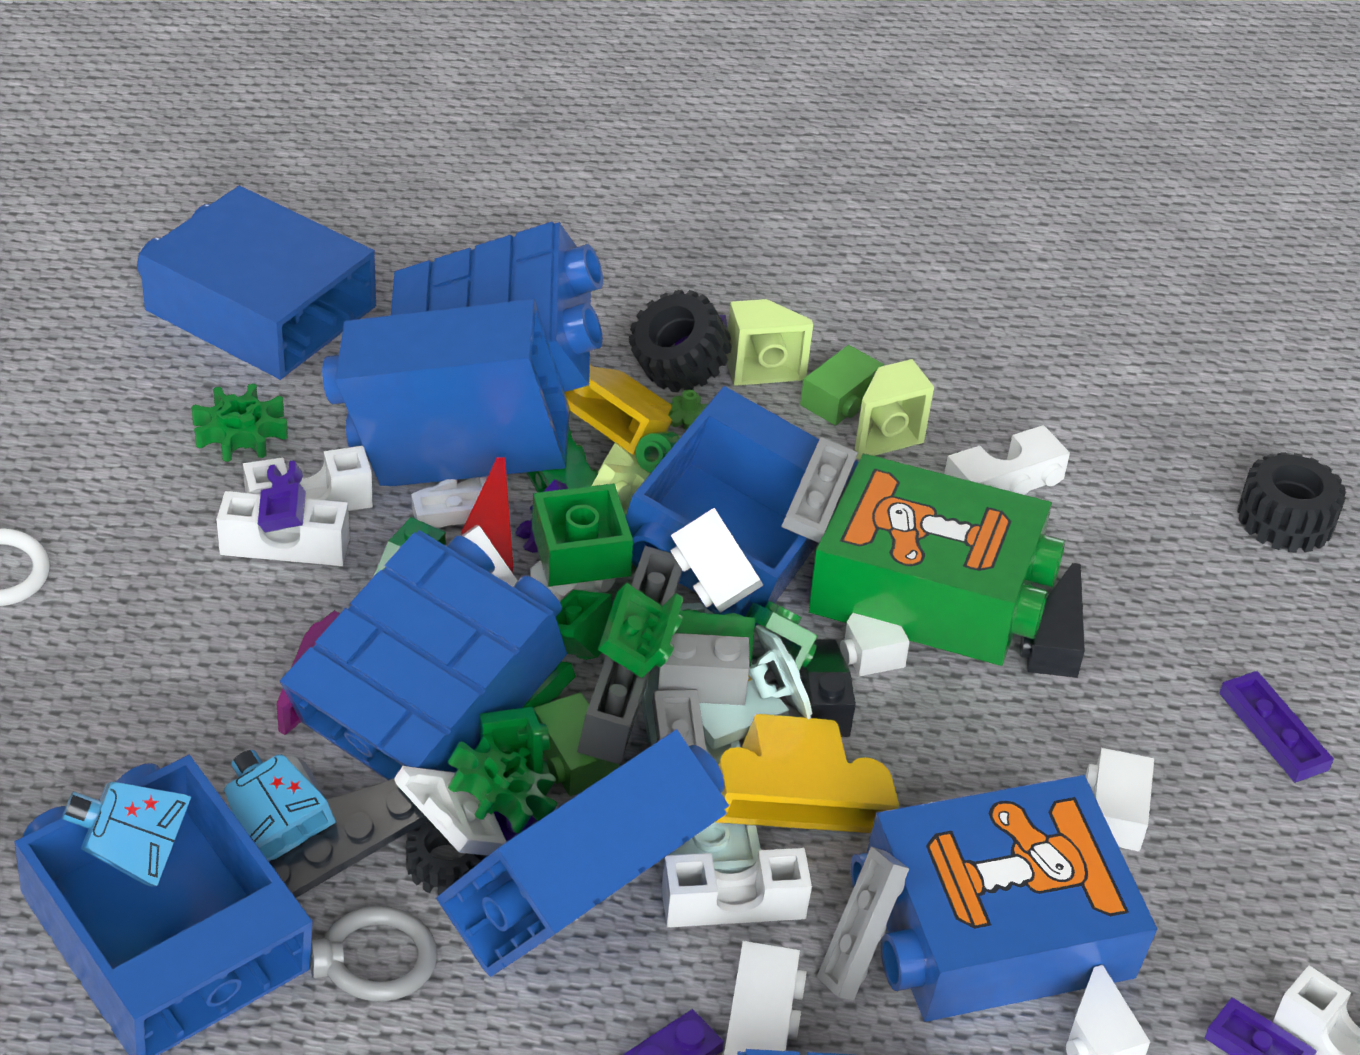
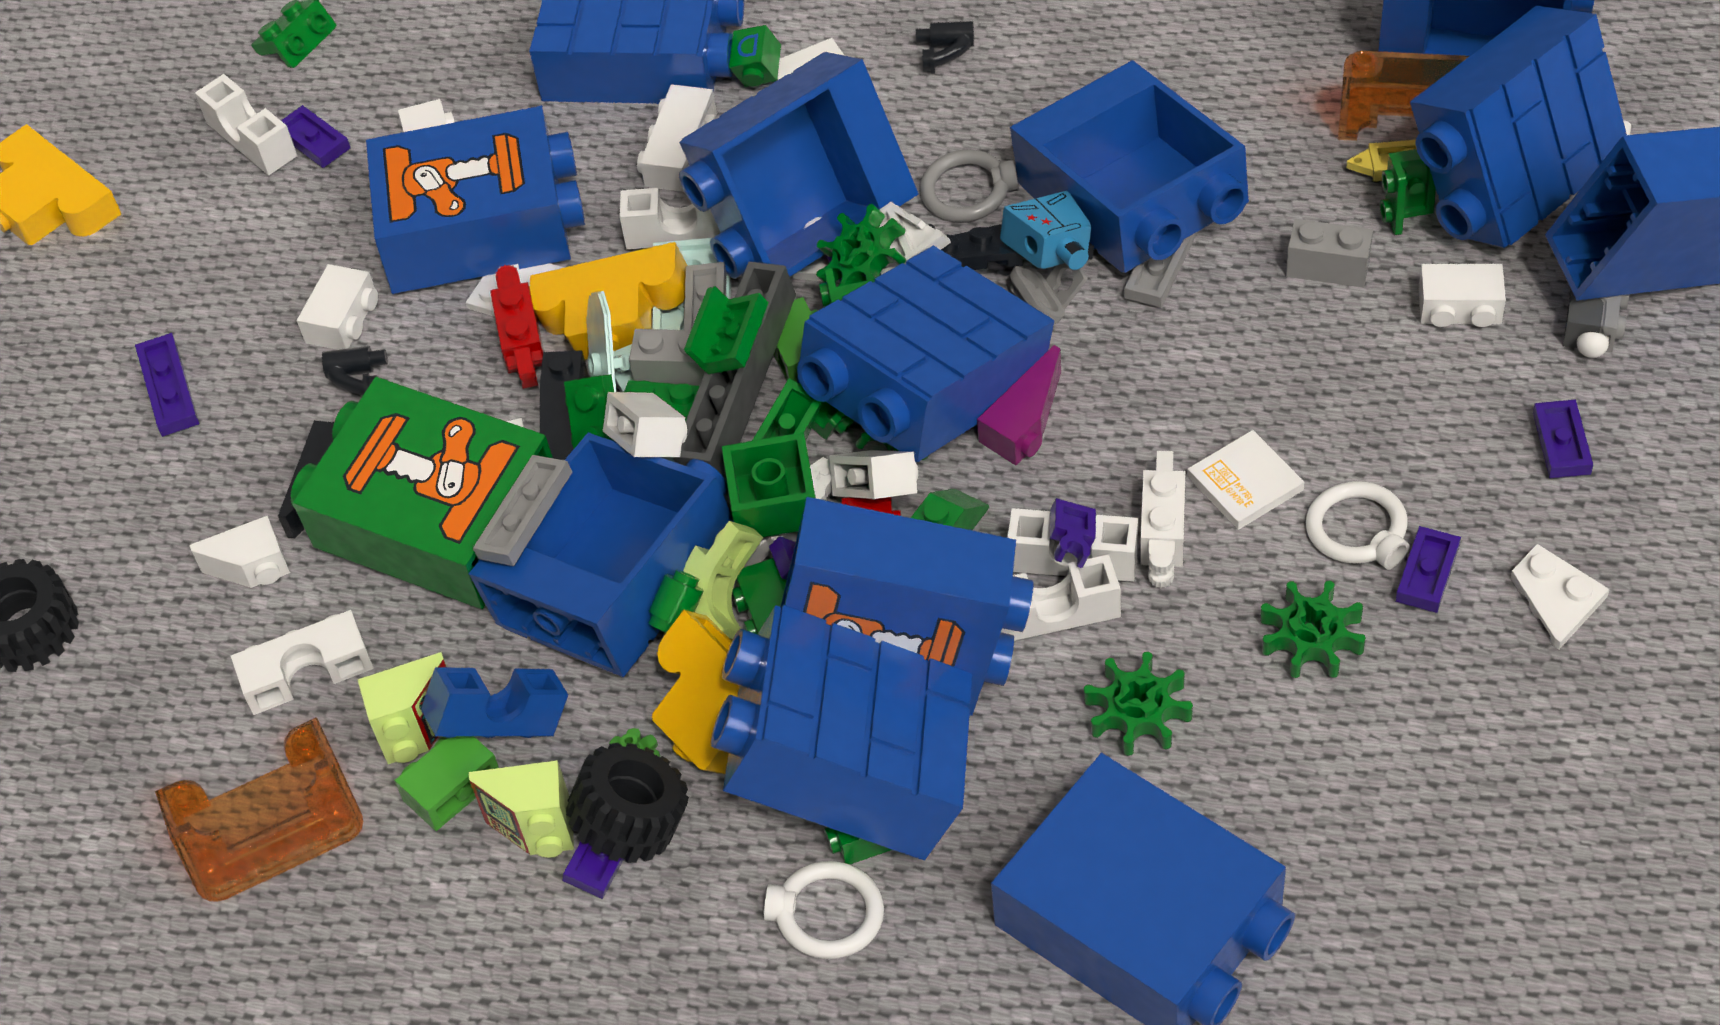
camera: 165 degrees left, 10 degrees up
(67, 471) = (1304, 639): none -> green gear
(99, 610) = (1245, 479): none -> white tile
(129, 827) = (1156, 159): torso -> none
(191, 554) = (1162, 520): none -> white hinge
(834, 381) = (462, 705): none -> blue arch
(862, 923) = (586, 162): light grey plate -> none
(896, 744) = (517, 325): none -> red hinge
(1000, 362) = (265, 822): none -> clear orange windscreen
(1071, 748) = (352, 361): none -> black plant
(1106, 552) = (243, 554): none -> white slope

